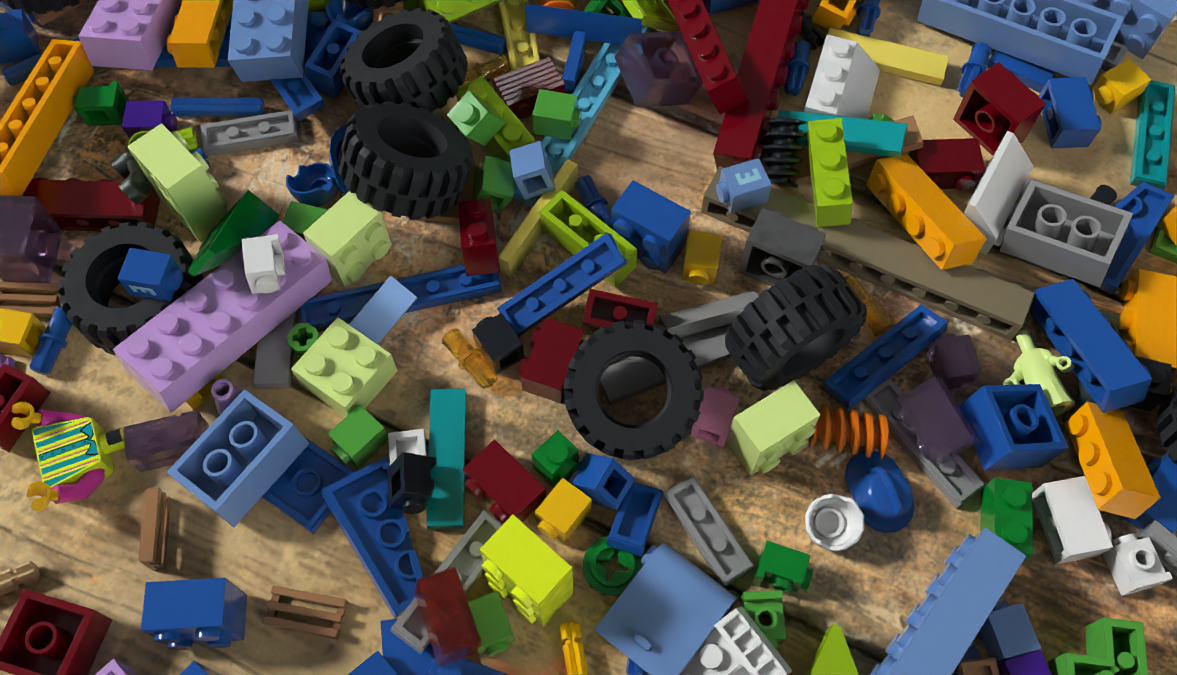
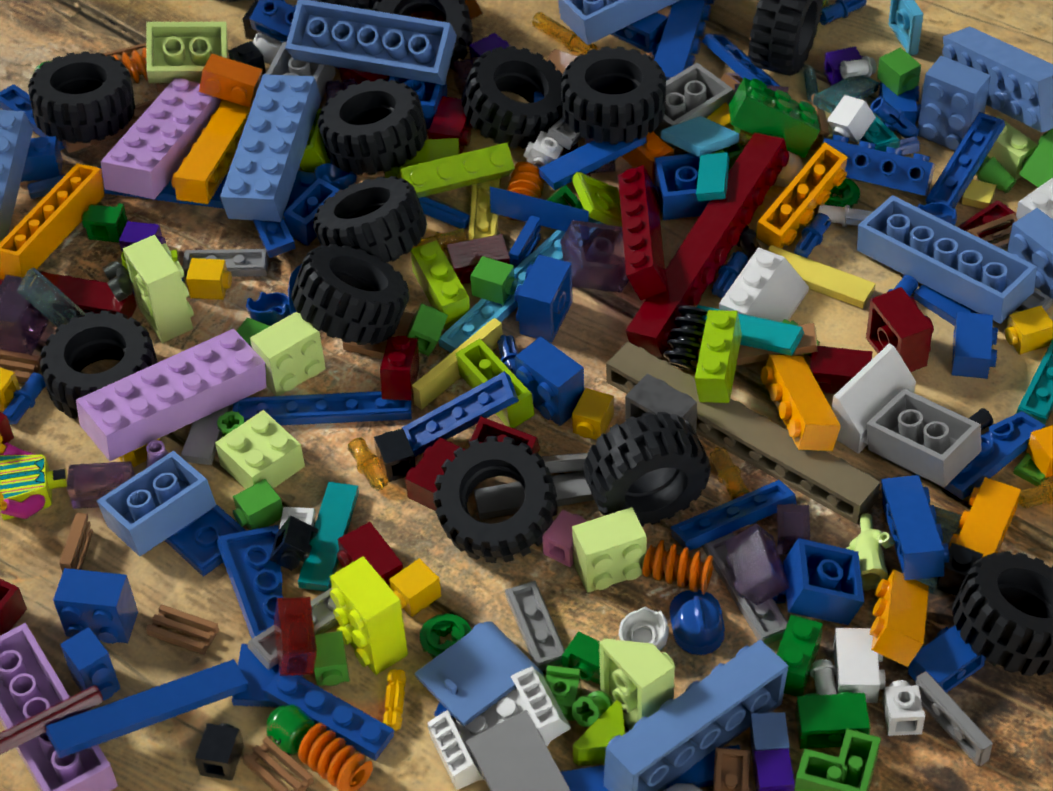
camera: 15 degrees right, 15 degrees down
(54, 217) = (48, 298): none -> clear light blue tile
(150, 274) = (118, 349): blue brick -> none
(217, 106) = (203, 238): blue axle -> none
(235, 156) = (208, 278): none -> yellow brick
(245, 220) = (196, 329): green wedge -> none
(263, 263) = (211, 353): white brick -> none
(383, 310) = (305, 413): light blue tile -> none
(476, 118) = (420, 271): bright green brick -> none
(532, 170) = (459, 320): medium blue brick -> none
(556, 459) = (422, 544): green brick -> none
(602, 480) = (454, 568): blue brick -> none
(614, 126) = (544, 297): none -> blue brick
(635, 519) = (474, 603): blue tile -> none
(743, 186) = (639, 356): medium blue brick -> none
(811, 634) = (590, 708): none -> bright green bush
(863, 605) = (636, 677): none -> yellowish green slope
(1043, 547) = (823, 675): none -> white pin
(1066, 595) = (825, 718): none -> green brick

